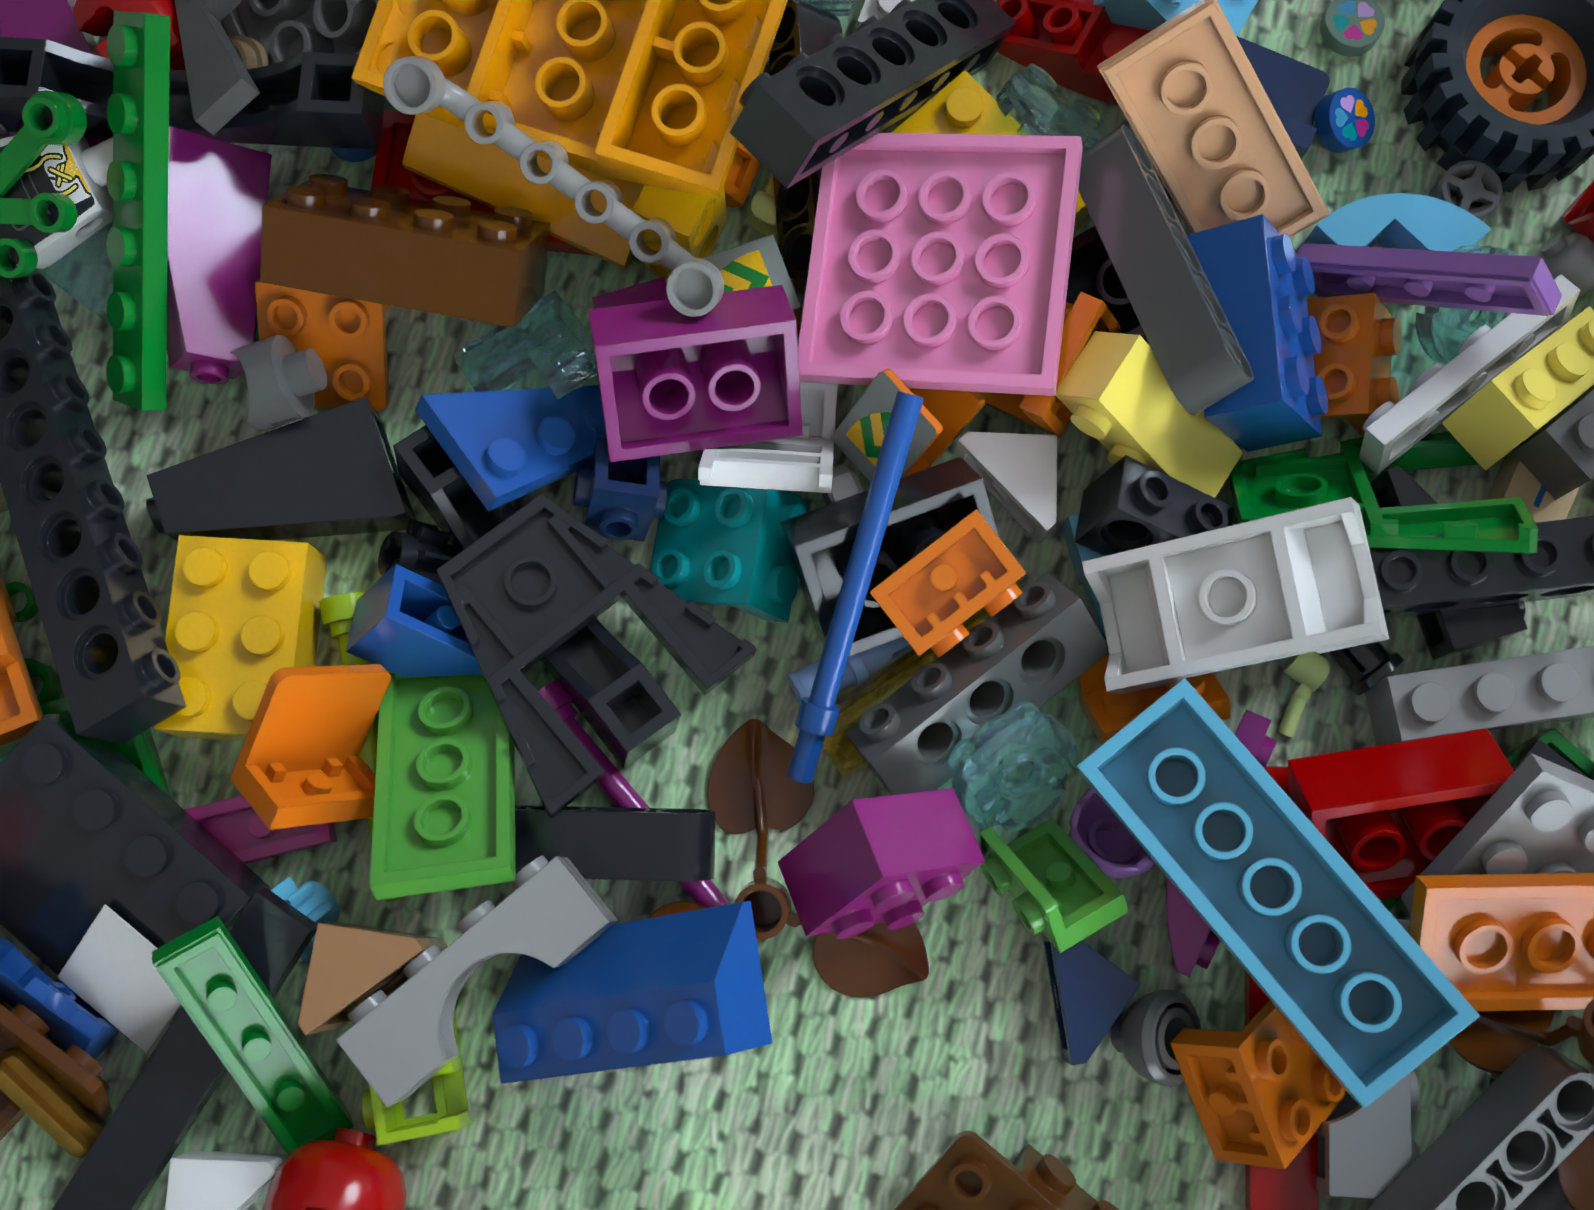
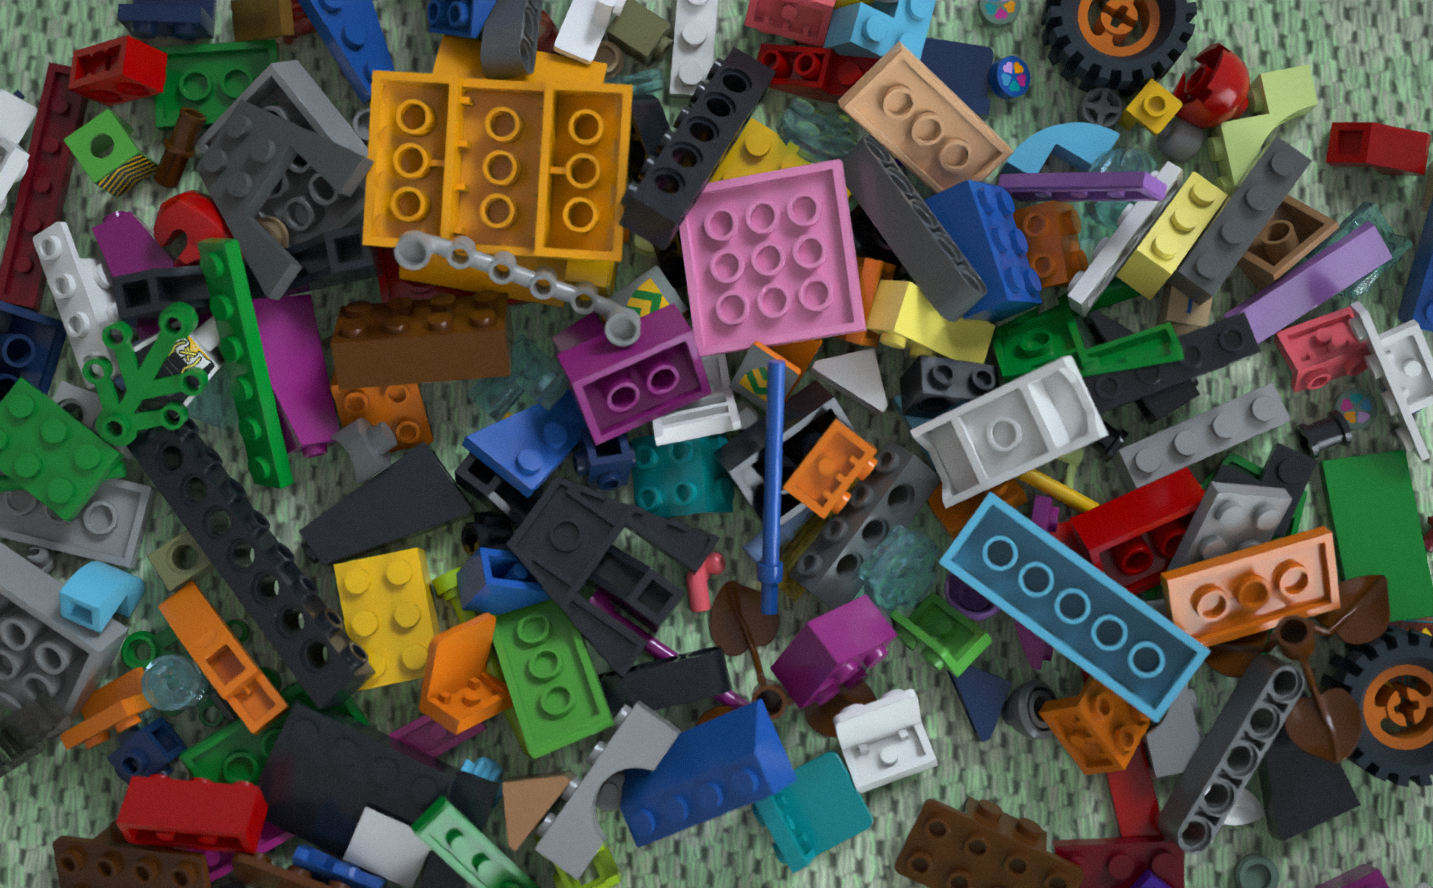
camera: 10 degrees left, 5 degrees up
(487, 984) = (610, 793): none -> light grey piece
(707, 709) = (697, 584): none -> coral arm
(784, 1102) = (813, 811): none -> teal bracket
(922, 1020) = (884, 740): none -> white bracket
(1263, 703) = (1058, 490): none -> yellow bar
(1542, 206) = (1150, 108): none -> yellow bracket

